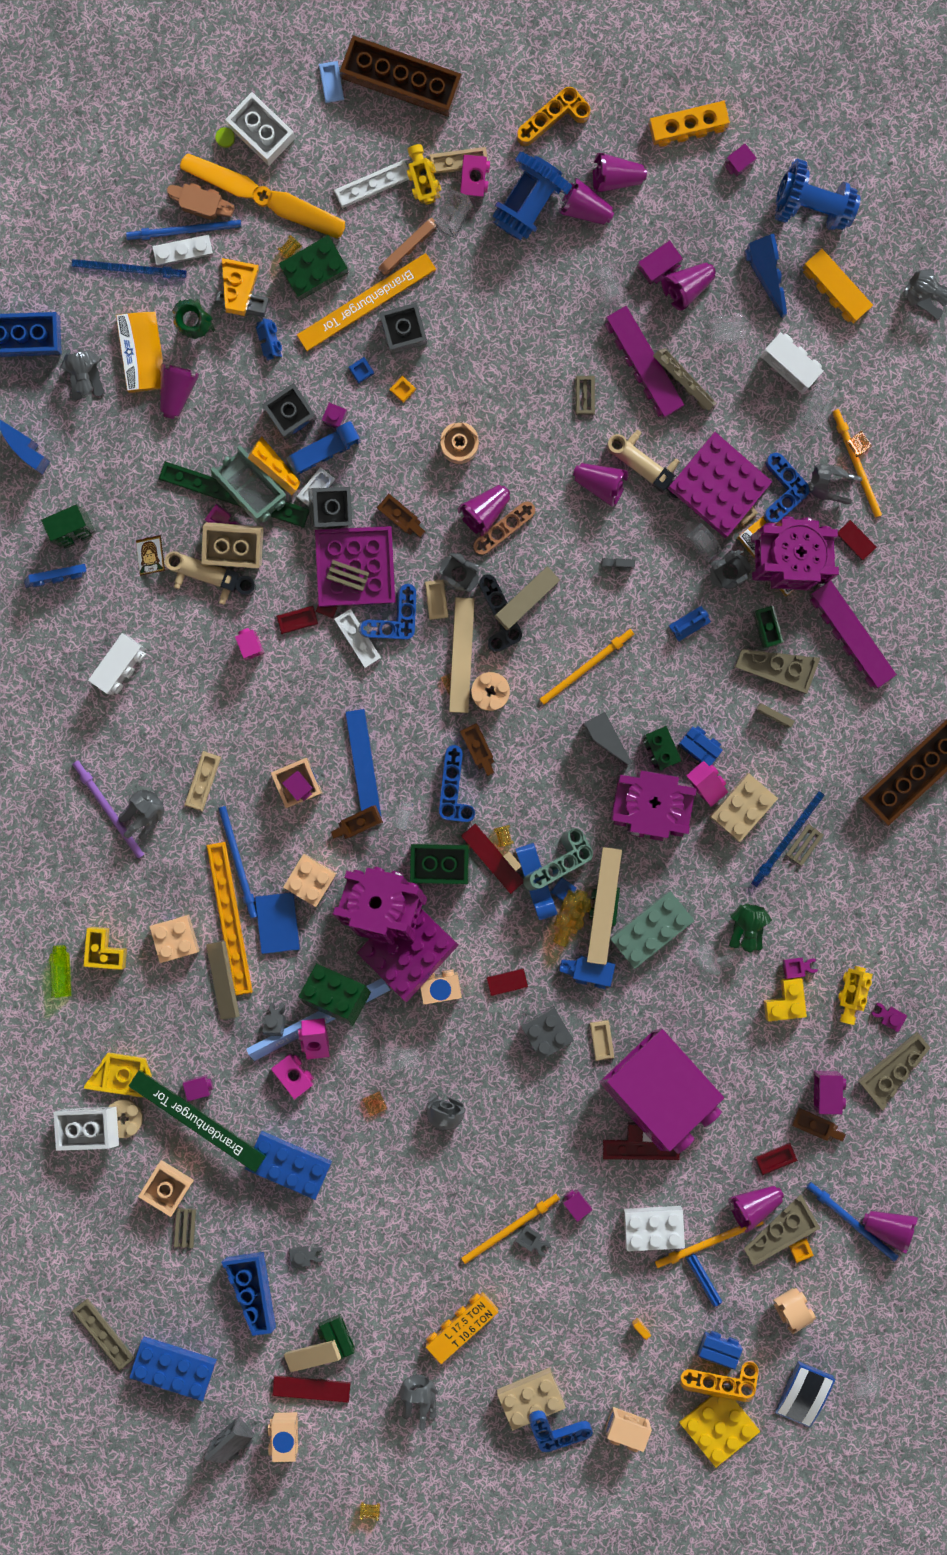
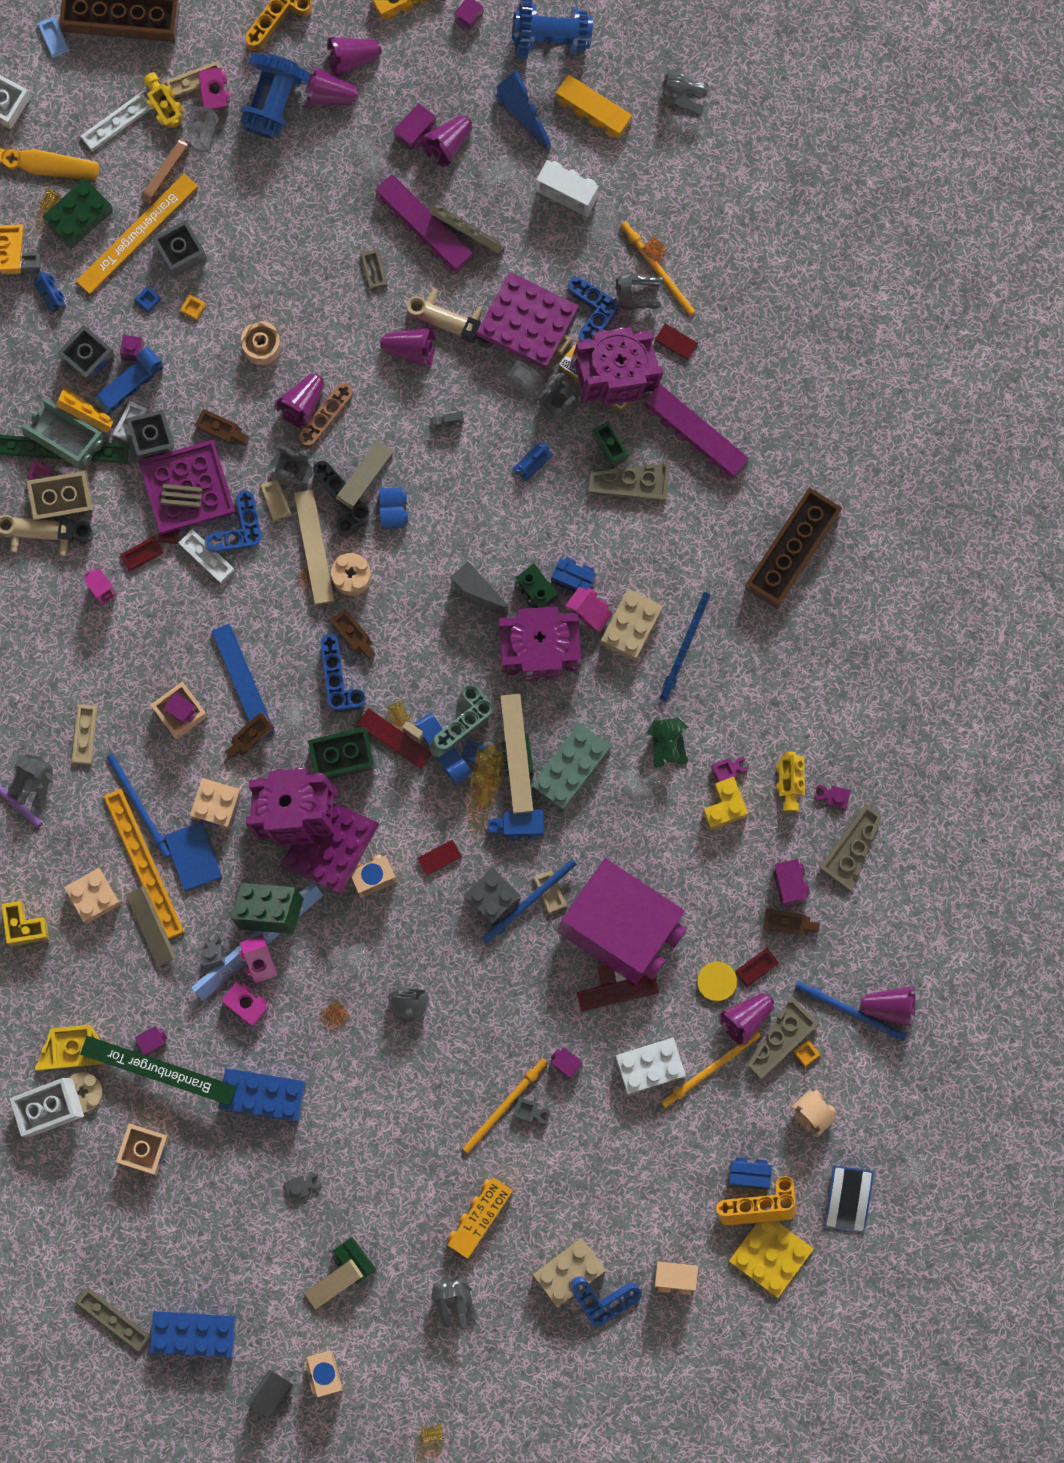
camera: 15 degrees left, 10 degrees down
(185, 1222) = (174, 1205): dark tan tile -> none
(252, 1290) = (255, 1232): blue wedge -> none
(311, 1389) = (341, 1322): dark red tile -> none
(545, 636) = (391, 508): none -> blue brick
(547, 1062) = (499, 926): none -> blue bar
(616, 643) = (465, 498): light orange bar -> none
(641, 1329) = (664, 1173): light orange tile -> none
(704, 1280) = (715, 1108): blue axle -> none
(735, 1163) = (717, 981): none -> yellow tile
(774, 715) = (639, 528): dark tan tile -> none
(811, 848) = (709, 632): dark tan tile -> none

